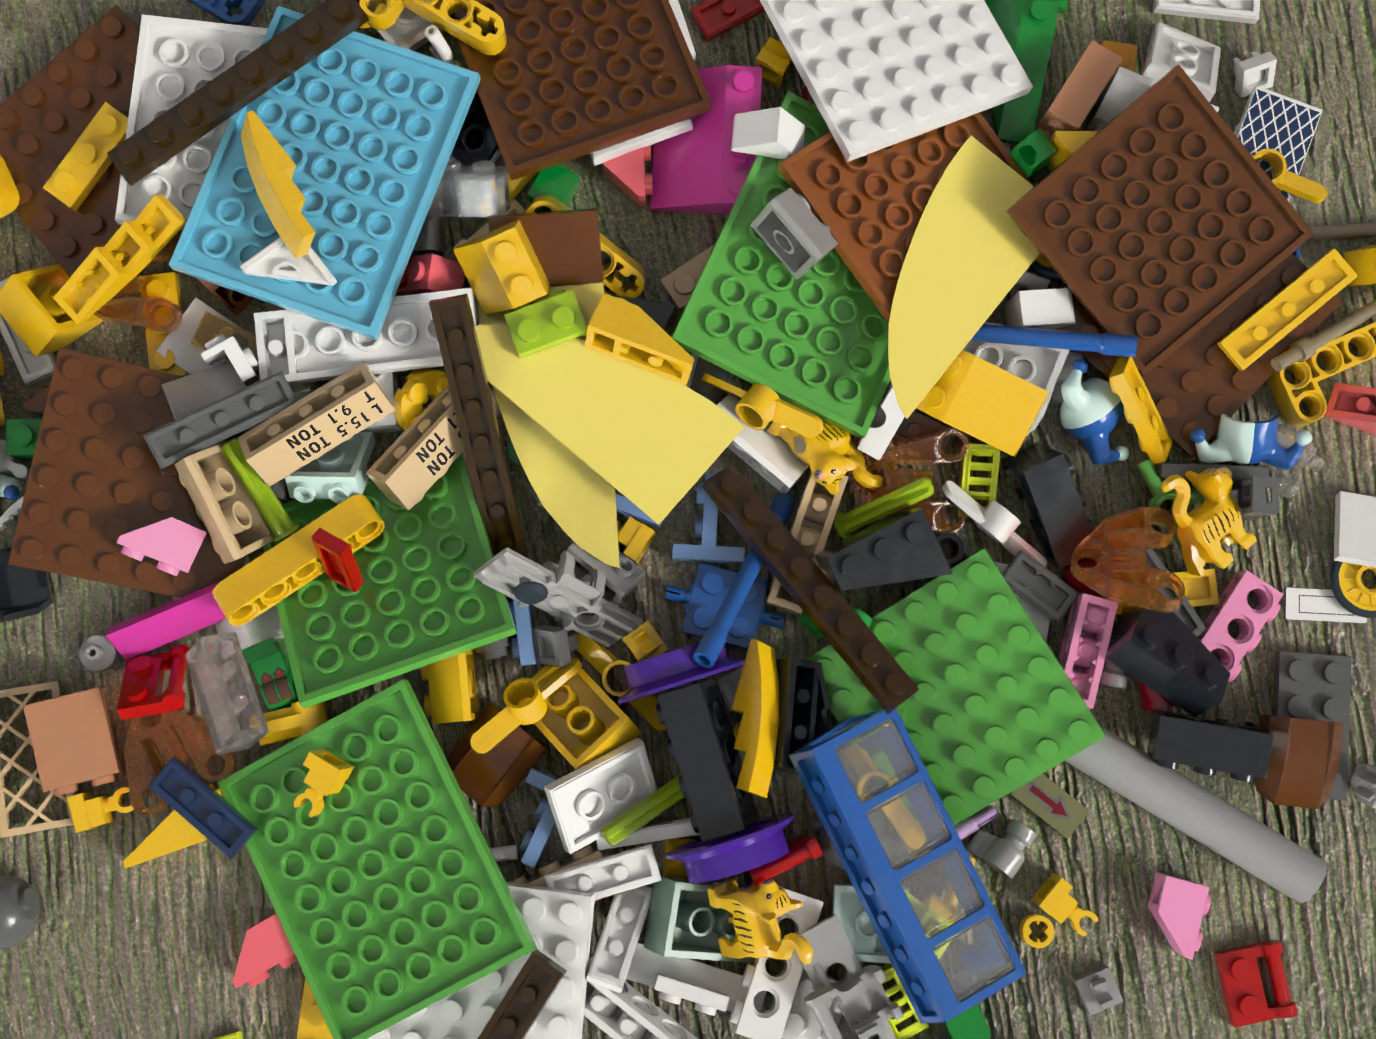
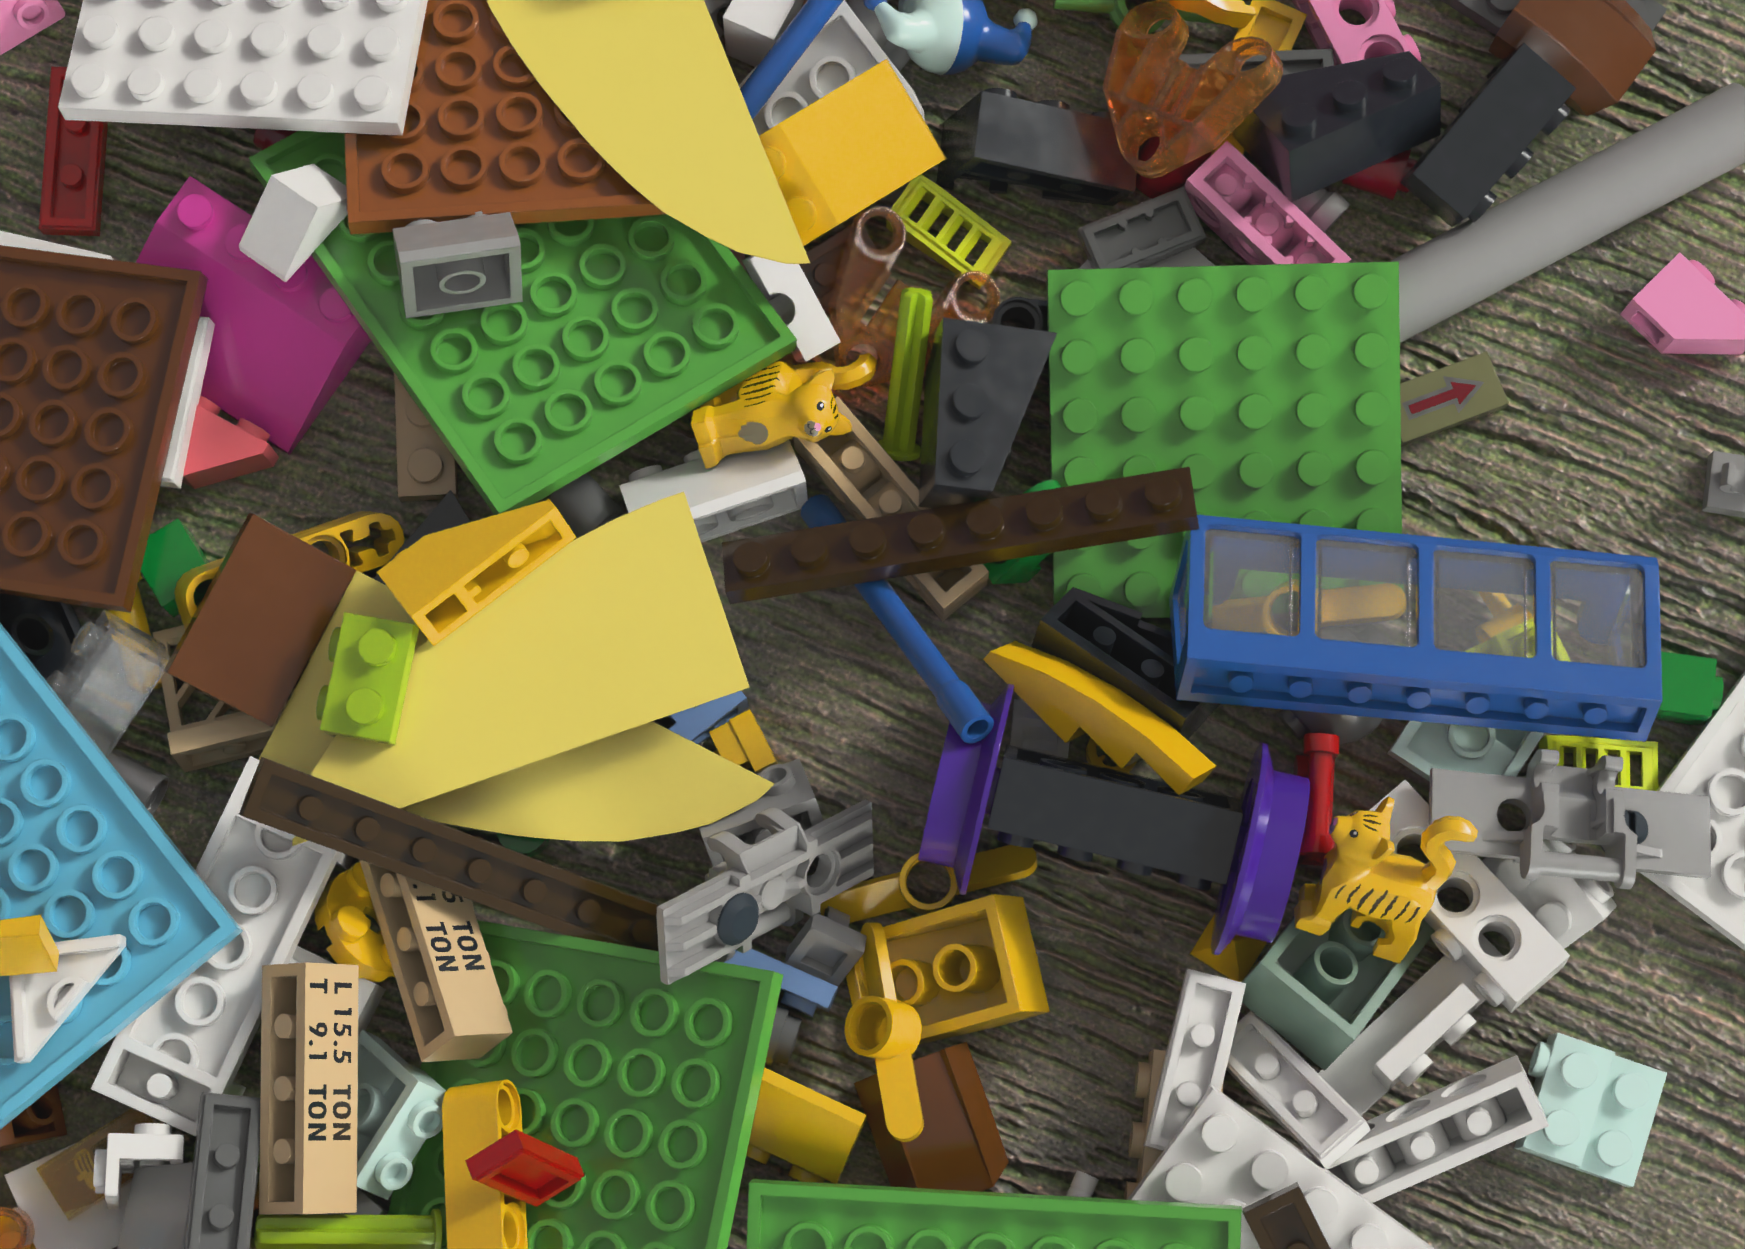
camera: 55 degrees left, 5 degrees down
(430, 274) = (193, 805): coral slope -> none
(502, 268) = (251, 697): yellow slope -> none
(534, 842) = (1057, 1092): medium blue bracket -> none
(599, 793) = (1080, 997): white tile -> none
(642, 812) = (1135, 949): lime axle -> none
(645, 642) = (898, 819): yellow piece -> none
(653, 833) = (1170, 969): white tile -> none
(706, 598) = (892, 693): blue plate -> none
(707, 531) = (796, 640): medium blue bracket -> none
(762, 405) = (668, 448): yellow piece -> none
(774, 62) = (189, 153): yellow piece -> none
(972, 824) = (1414, 517): lavender pin -> none
(994, 521) = (1017, 241): white piece -> none
(1003, 853) = (1481, 496): light grey piece -> none
(1047, 930) = (1601, 533): yellow bush -> none
(1058, 904) = (1590, 466): yellow piece -> none

